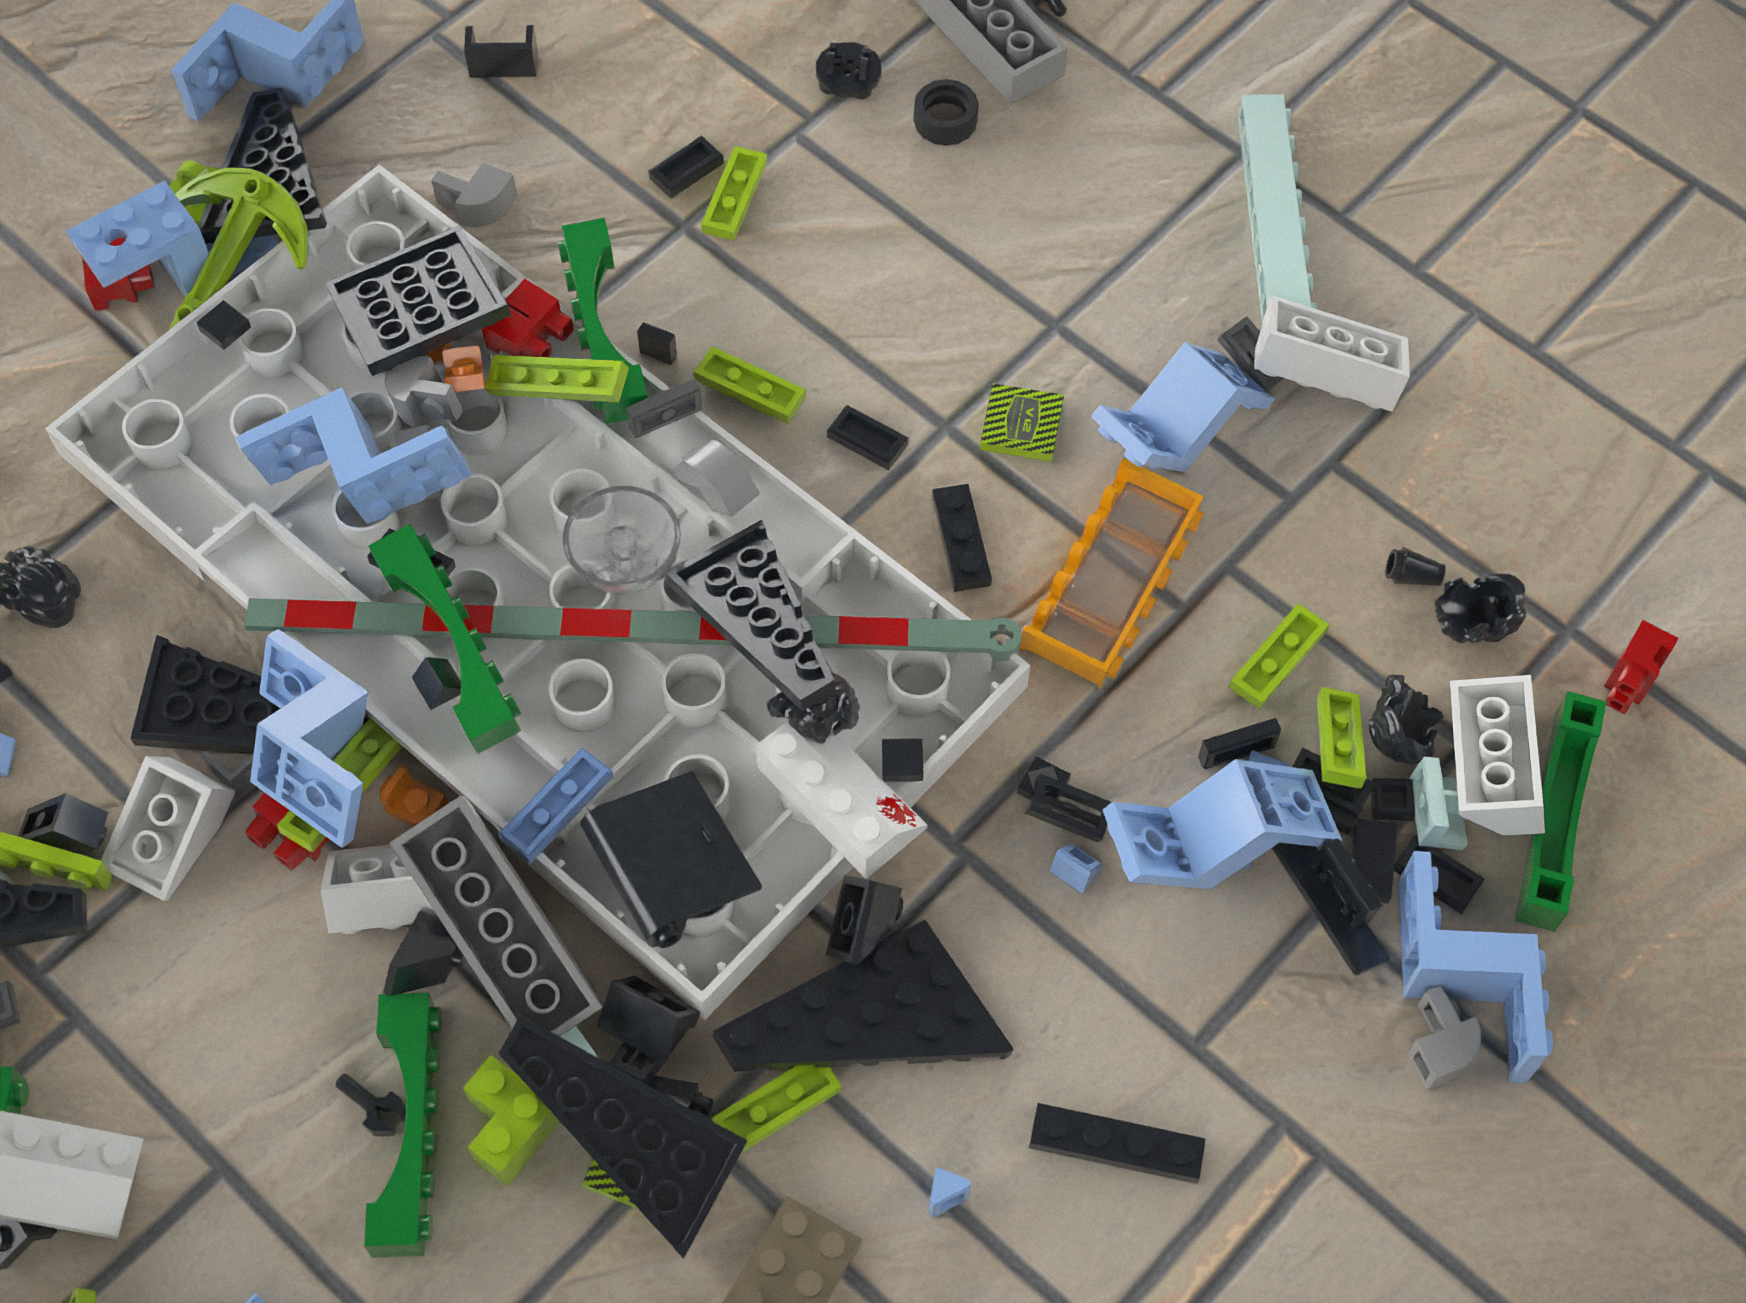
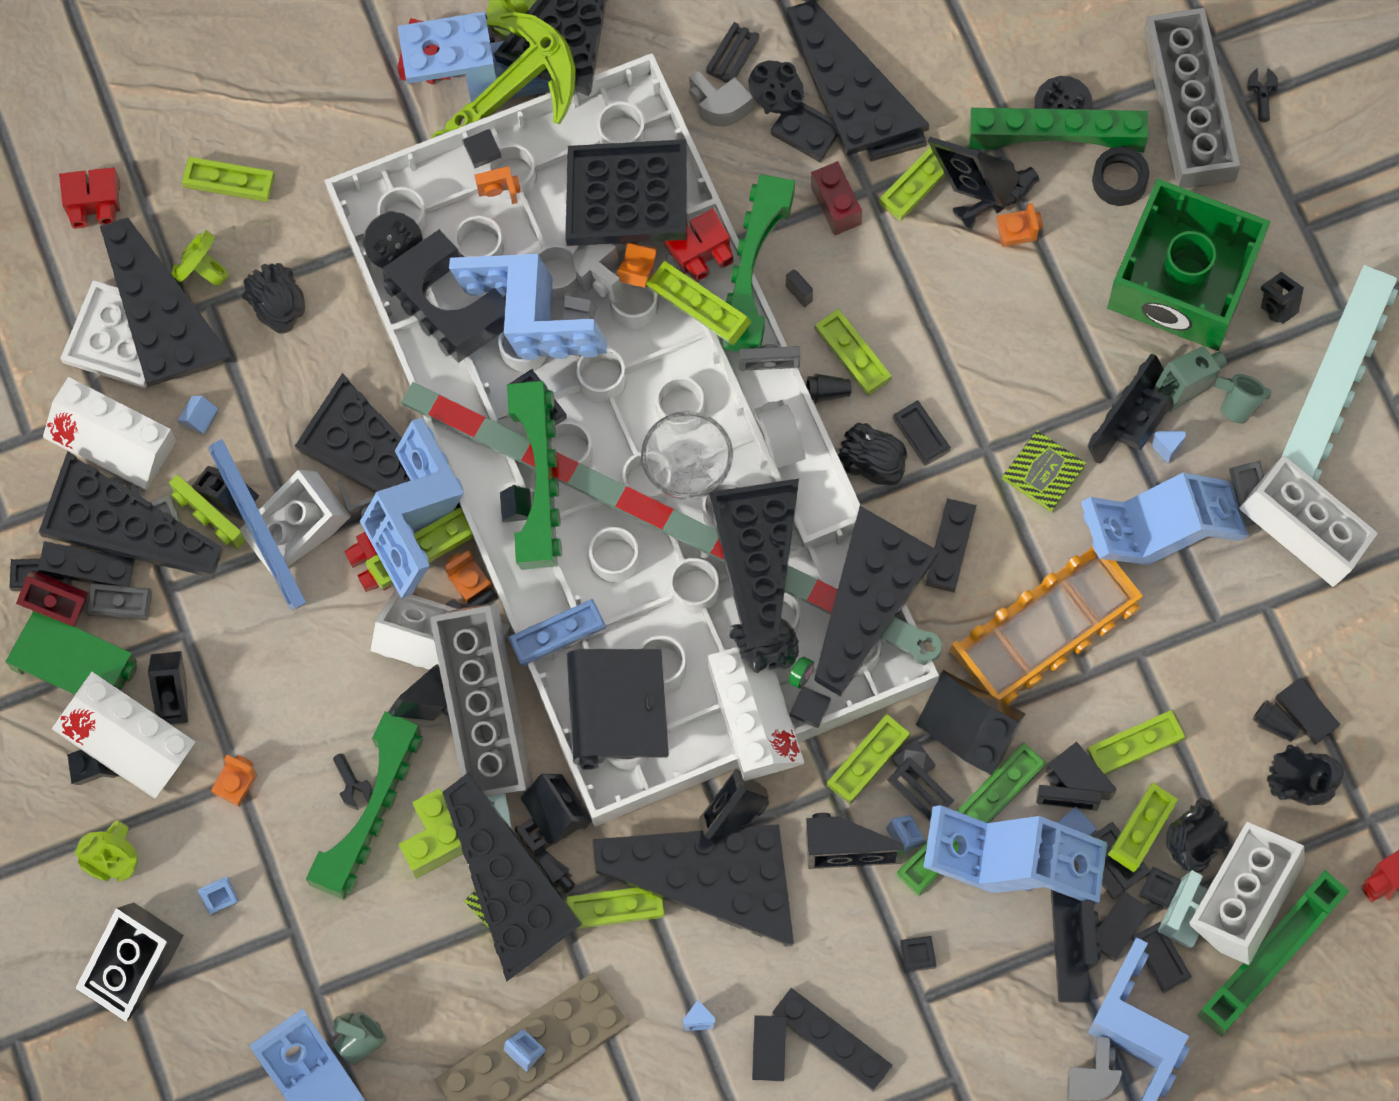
camera: 30 degrees right, 10 degrees up
(80, 1087) = (168, 686): none -> black slope
(117, 841) = (256, 524): none -> medium blue tile
(151, 475) = (402, 231): none -> black plate
(216, 1167) = (235, 779): none -> orange bracket
(257, 348) = (496, 181): none -> orange bracket
(277, 520) = (457, 331): none -> black arch
(469, 128) = (743, 33): none -> black tile
(533, 158) = (766, 89): none -> black plate
(585, 192) = (806, 131): none -> black plate
(623, 137) = (855, 92): none -> black wing
(653, 240) = (836, 198): none -> dark red brick
(745, 427) = (827, 387): none -> black cone
(792, 149) = (976, 172): none -> black slope
(795, 109) = (1007, 126): none -> green arch
(827, 174) = (968, 215): none -> black animal
(830, 474) = (873, 455): none -> black hair
(866, 197) = (1019, 226): none -> orange bracket
(873, 724) = (801, 672): none -> green tile
(909, 601) = (874, 586): none -> black wing
(991, 801) = (868, 759): none -> lime plate
(1021, 900) = (841, 843): none -> black slope
(1049, 1188) = (769, 1048): none -> black tile
(1070, 153) = (1187, 264): none -> green brick
(1087, 707) = (970, 722): none -> black slope
(1089, 326) = (1134, 414): none -> black bracket
(1128, 252) = (1190, 375): none -> sand green torso
(1138, 341) = (1168, 443): none -> light blue slope
(1150, 787) = (982, 805): none -> bright green tile
(1164, 996) = (918, 954): none -> black tile
(1177, 158) = (1279, 306): none -> black brick
(1192, 264) = (1242, 396): none -> sand green piece
(1236, 707) = (1078, 771): none -> black slope
(1440, 545) = (1307, 711): none -> black tile

